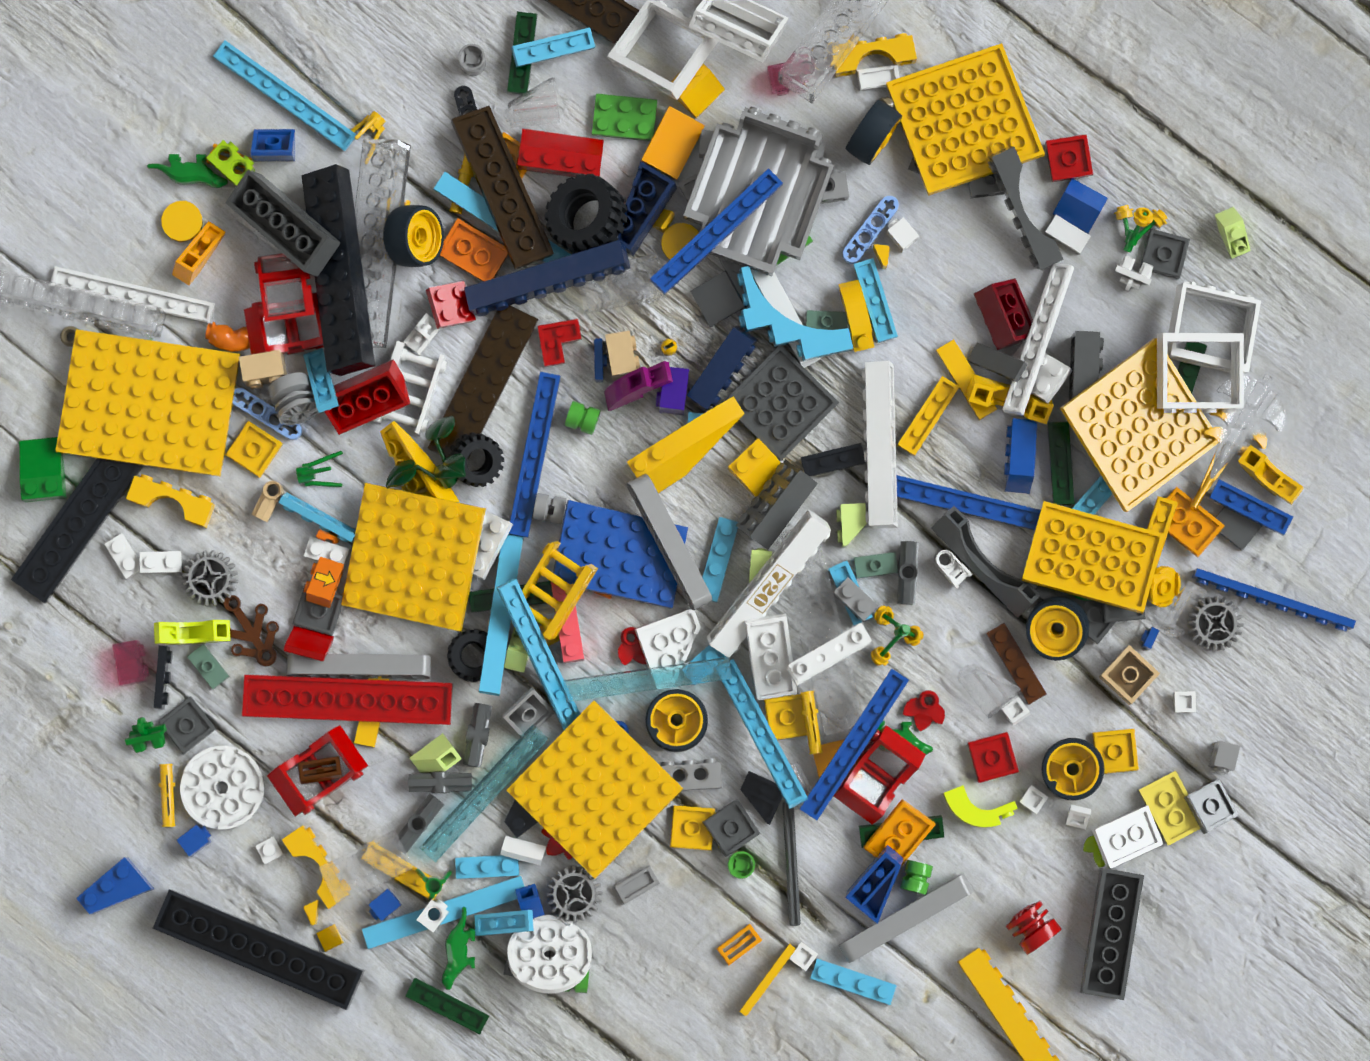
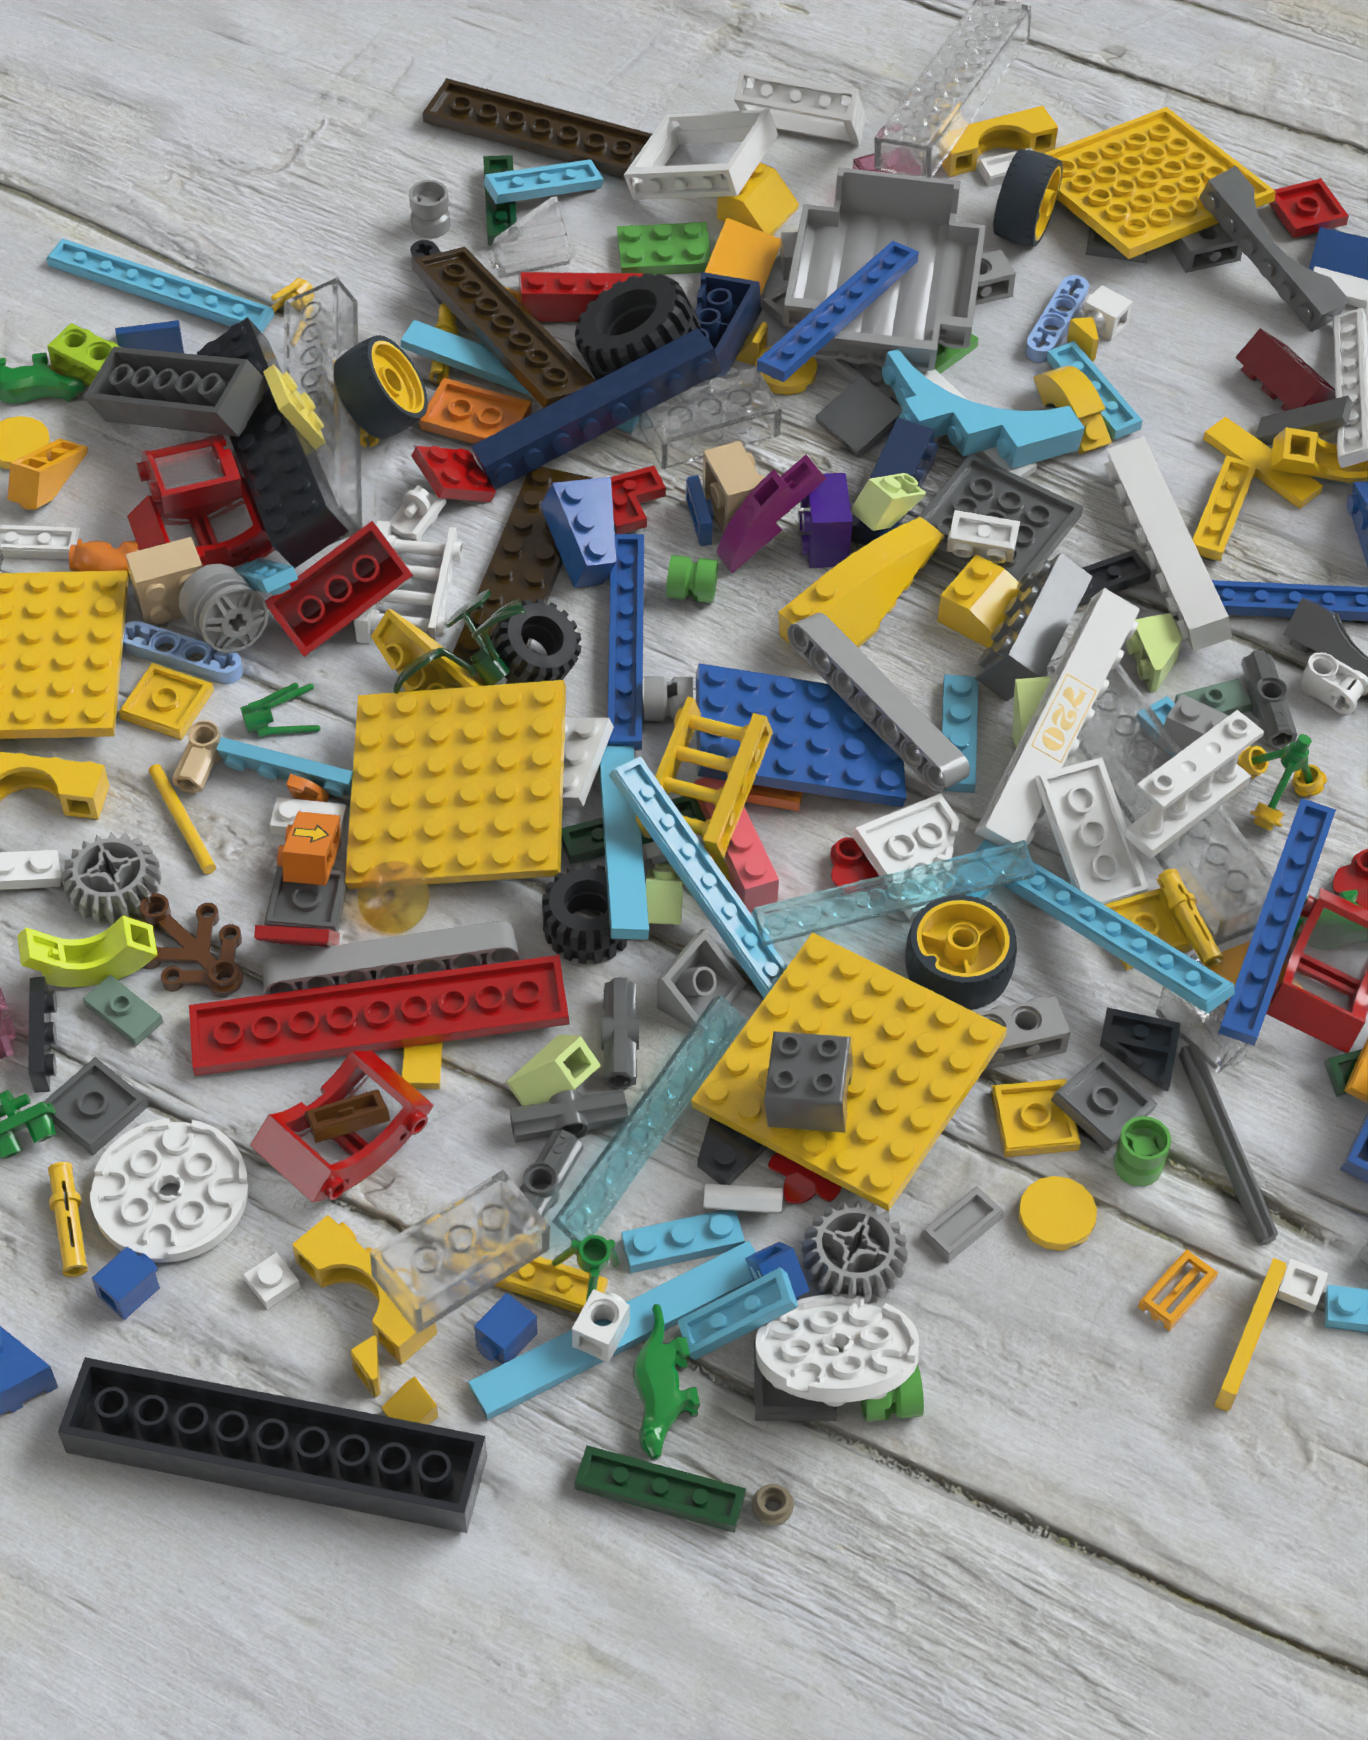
camera: 10 degrees left, 30 degrees down
(254, 539) = (182, 819): none -> yellow bar
(354, 260) = (295, 406): none -> light yellow plate
(368, 614) = (410, 899): none -> clear yellow dish
(496, 1028) = (777, 1494): none -> dark tan plate
(522, 370) = (582, 528): none -> wedge
(565, 806) = (808, 1081): none -> dark grey piece
(688, 888) = (1057, 1213): none -> yellow tile
(712, 391) = (887, 500): none -> yellowish green slope
(766, 423) = (983, 535): none -> white bracket

